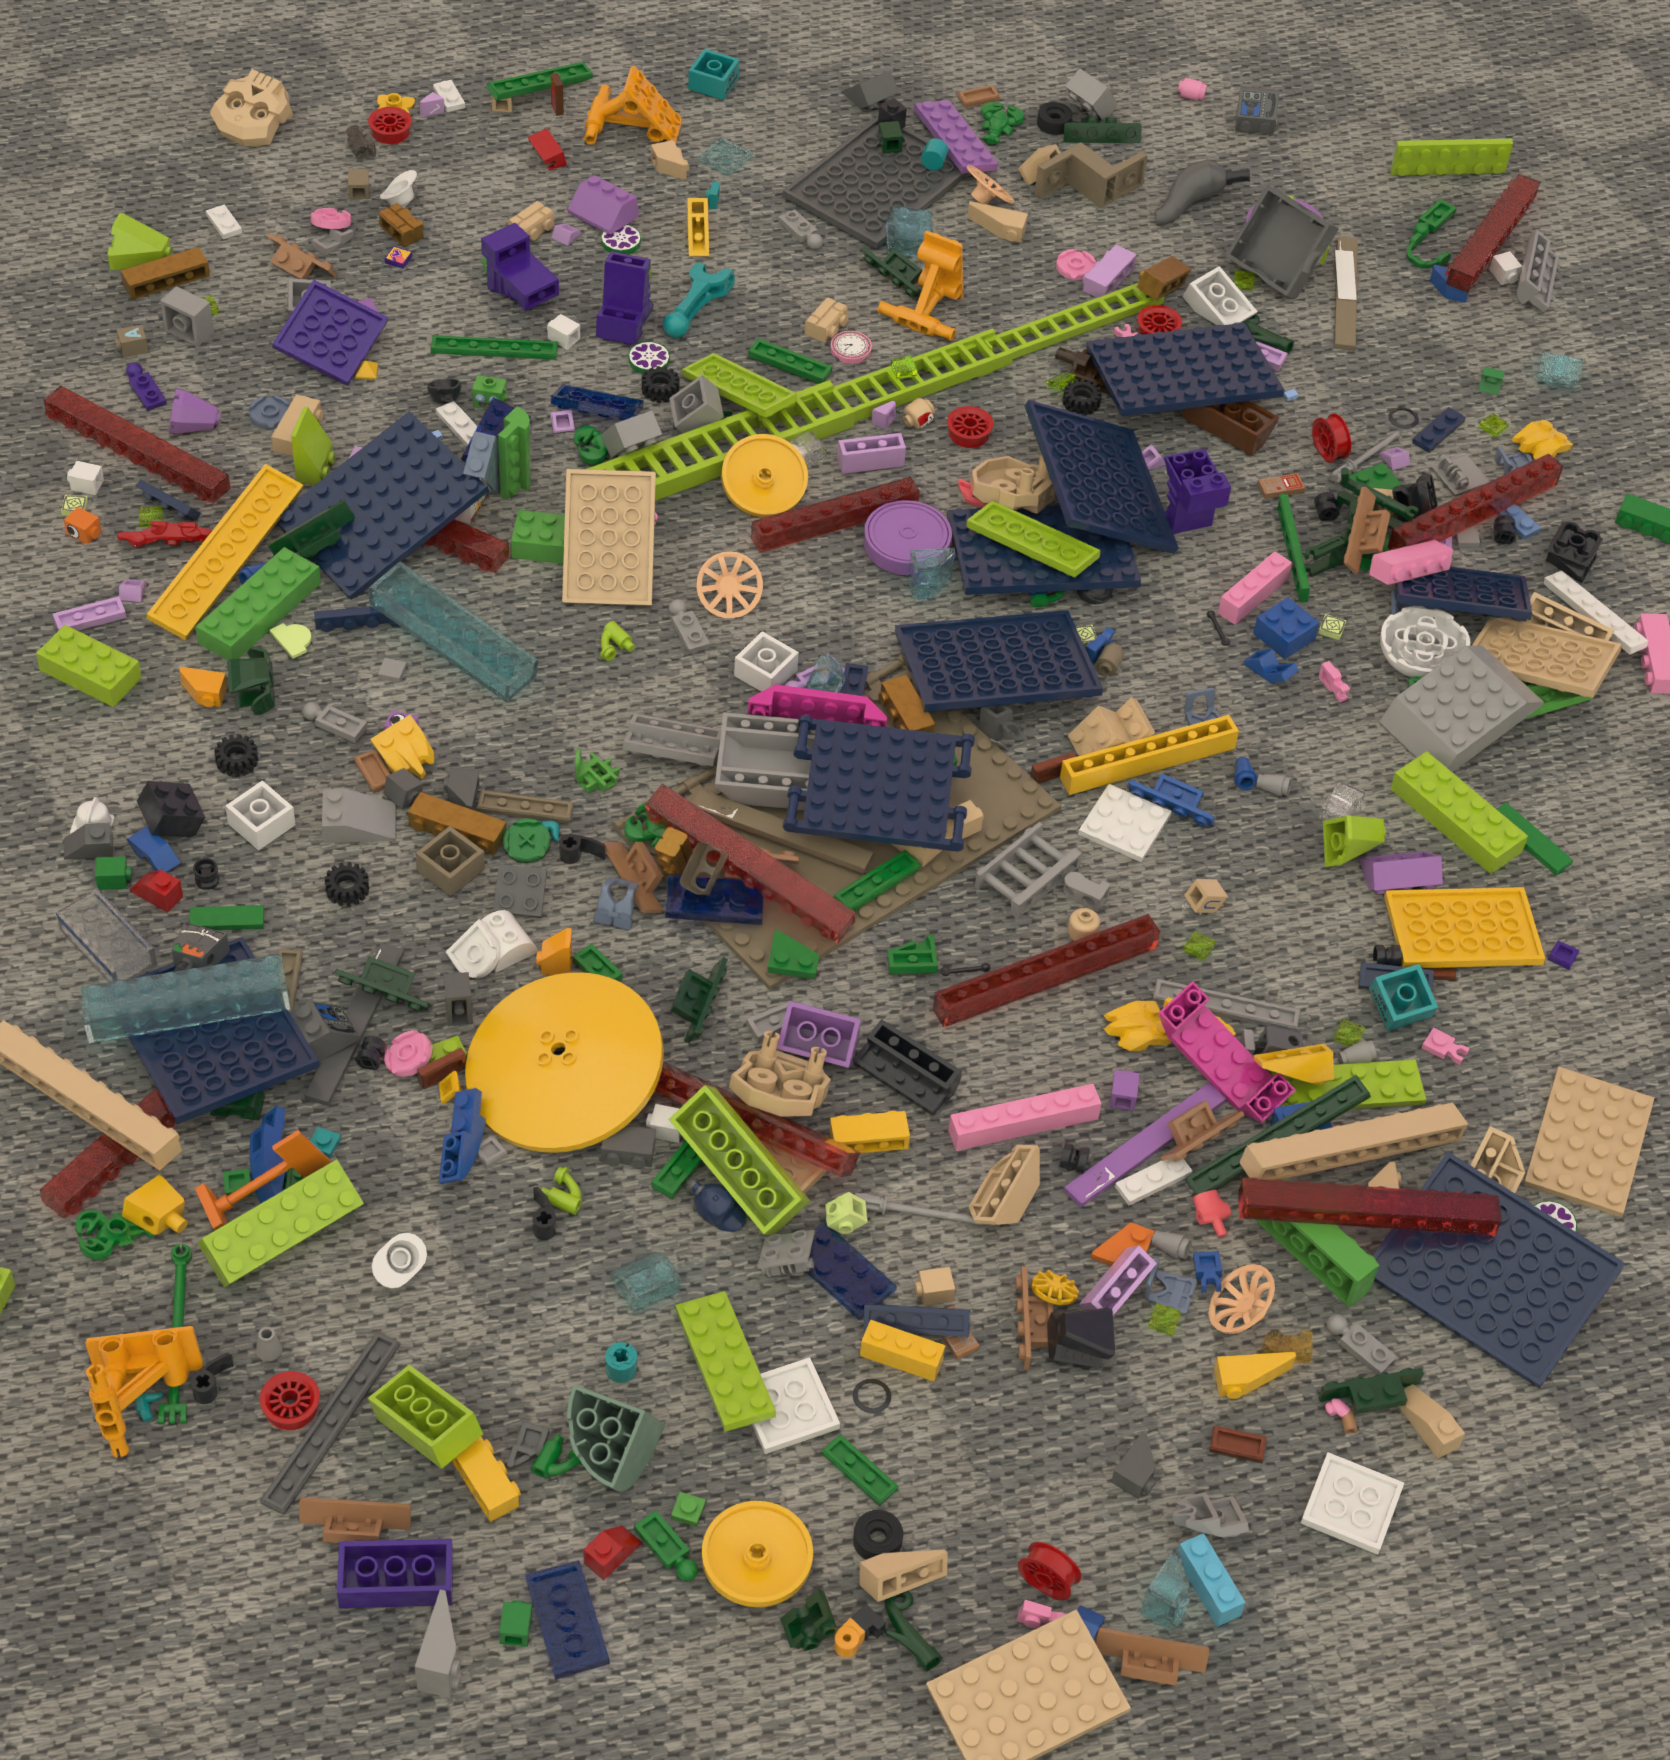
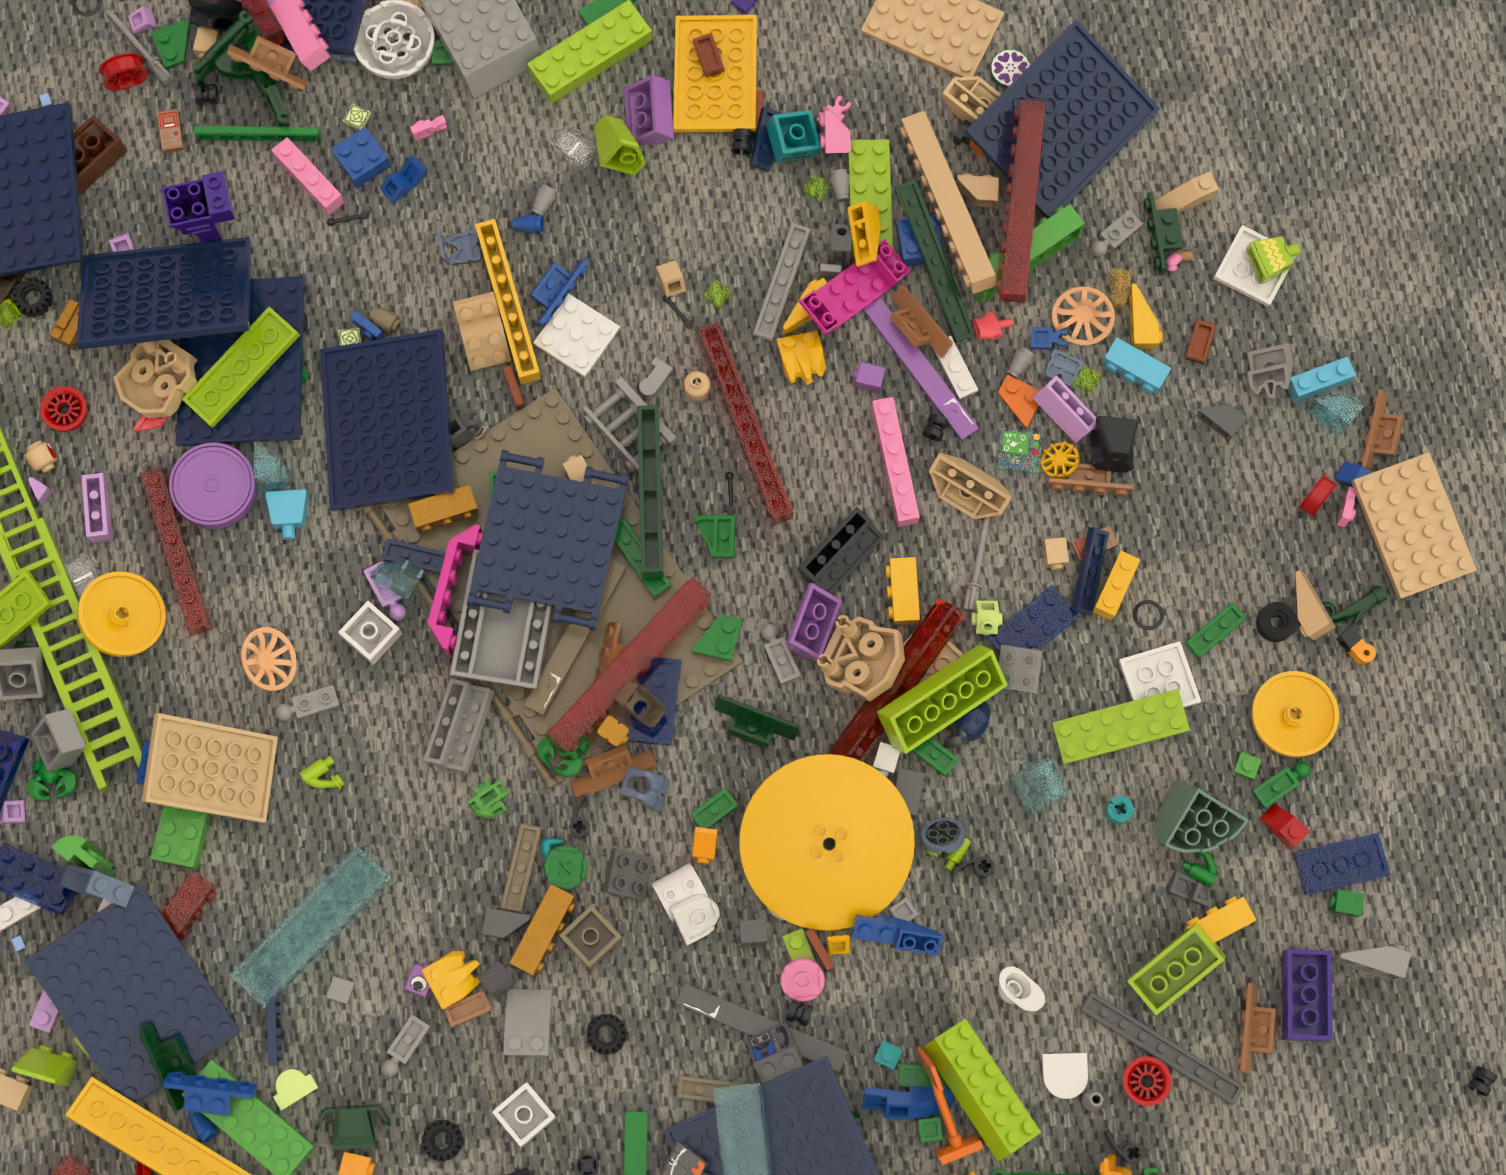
camera: 85 degrees left, 25 degrees up
(284, 558) = (209, 1094): none -> blue bracket
(300, 1319) = (1065, 1074): none -> white tile
(385, 979) = (728, 997): dark green bracket -> none
(579, 1178) = (943, 835): none -> tile
(809, 1622) = (1351, 679): dark green cylinder -> none
(889, 596) = (288, 510): none -> medium azure torso
(949, 874) = (650, 491): none -> dark green brick
(1060, 1249) = (1019, 451): none -> tile
(1159, 921) = (688, 323): none -> black hinge
(1189, 1367) = (1136, 366): none -> medium azure brick
(1363, 1510) = (1271, 257): none -> lime torso
(1417, 1031) = (835, 133): none -> bright pink slope
(1482, 915) = (708, 55): none -> copper tile

